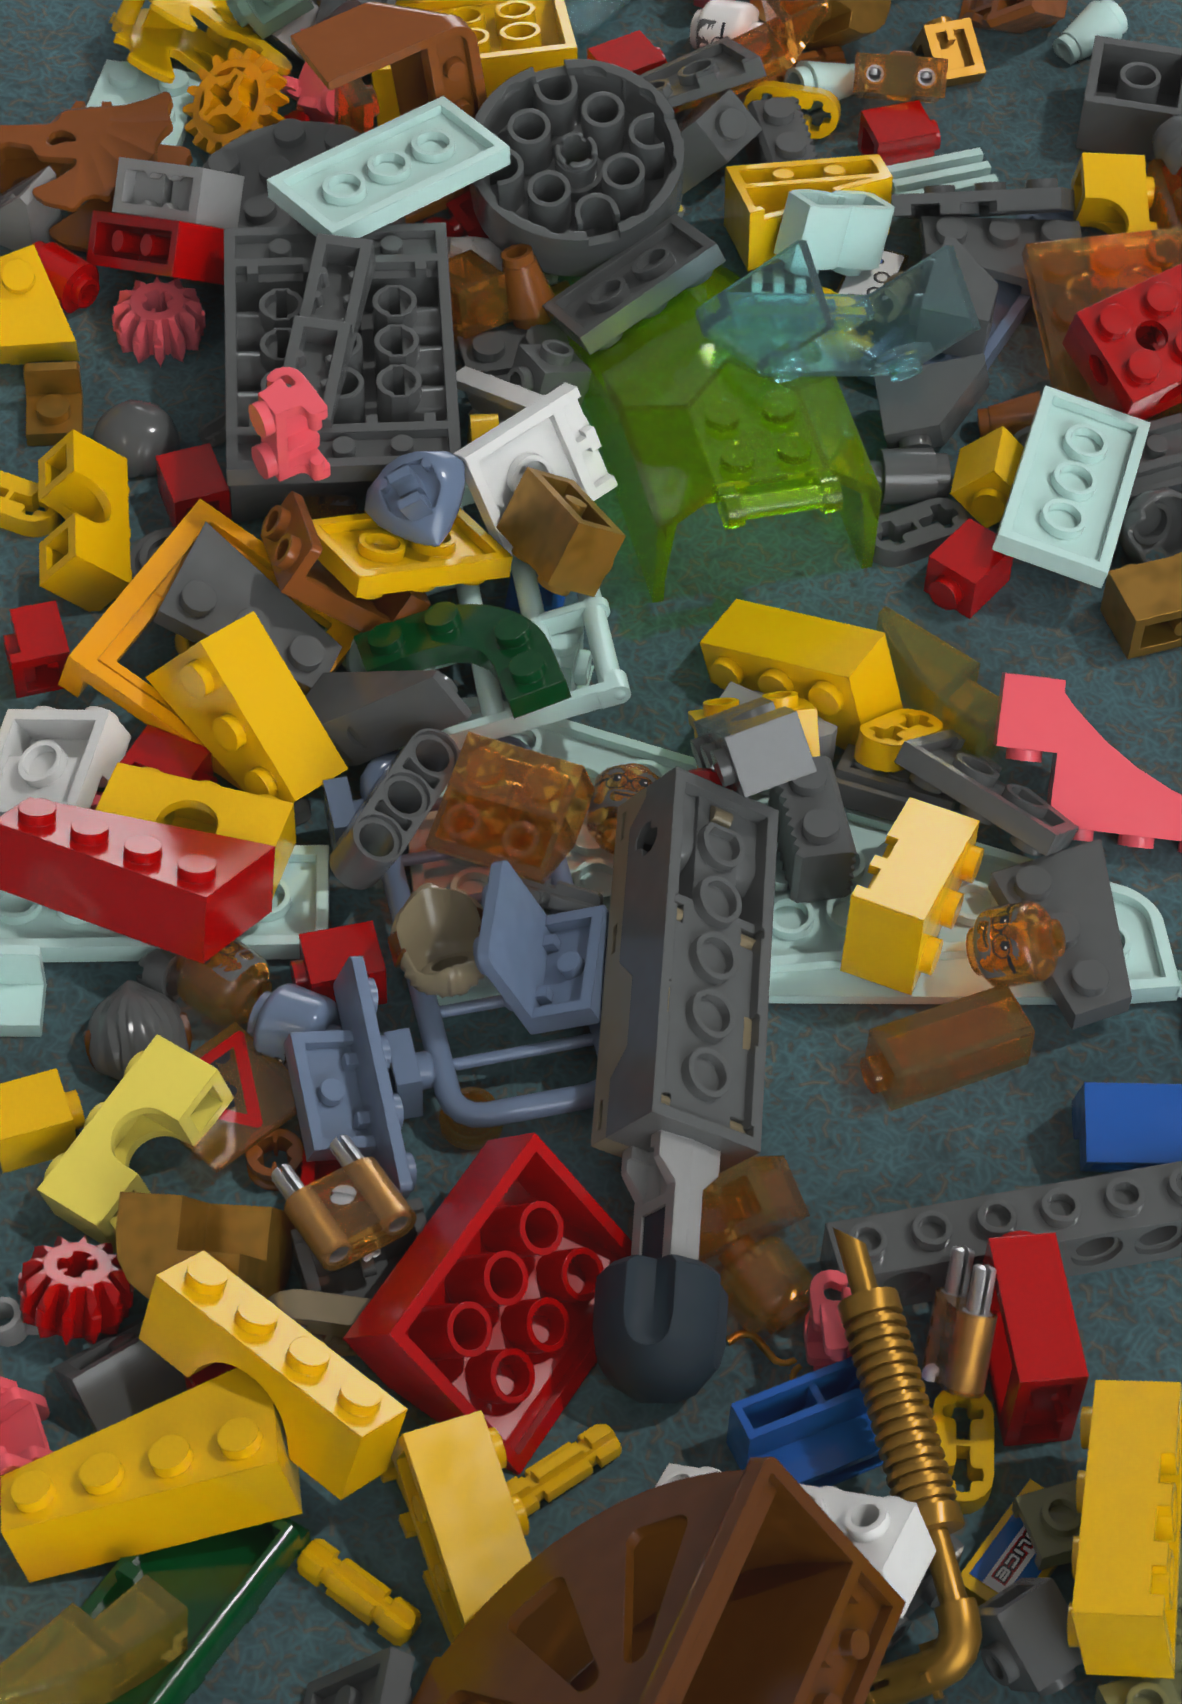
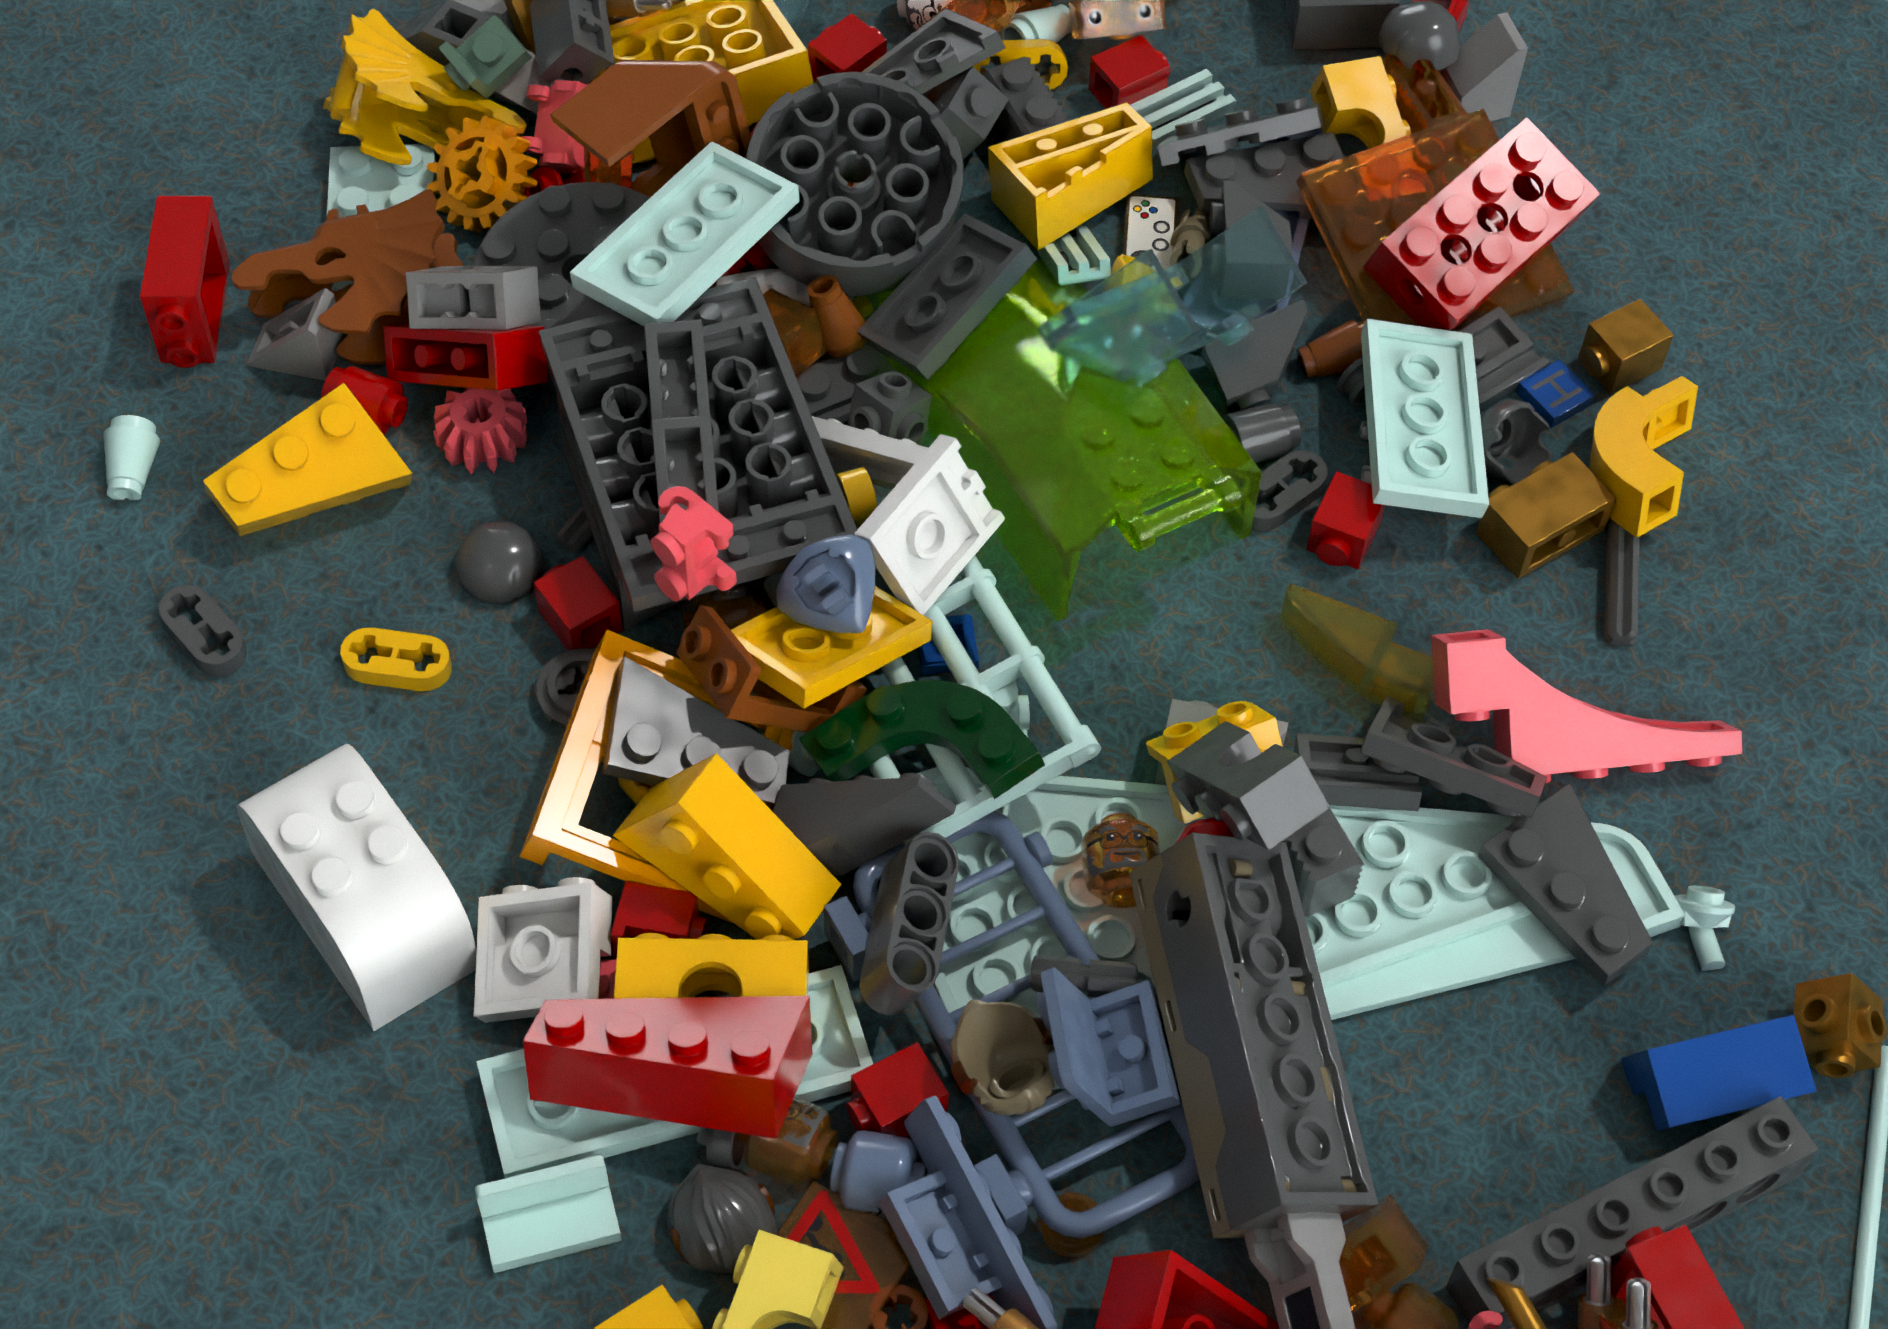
camera: 15 degrees left, 5 degrees up
(36, 648) = (481, 818): red brick -> none
(52, 401) = (405, 542): pearl gold bracket -> none
(90, 551) = (502, 704): yellow arch -> none
(511, 808) = (1022, 900): clear orange slope -> none
(560, 533) = (978, 591): pearl gold brick -> none
(828, 662) = (1234, 660): yellow wedge -> none
(841, 228) = (1112, 195): light aqua brick -> none
(883, 737) = (1343, 720): yellow beam -> none
(911, 896) = (1421, 889): yellow wedge -> none
(947, 1047) = (1495, 1034): clear orange brick -> none
(986, 475) = (1336, 420): yellow brick -> none
(1015, 944) = (1534, 918): clear orange head -> none

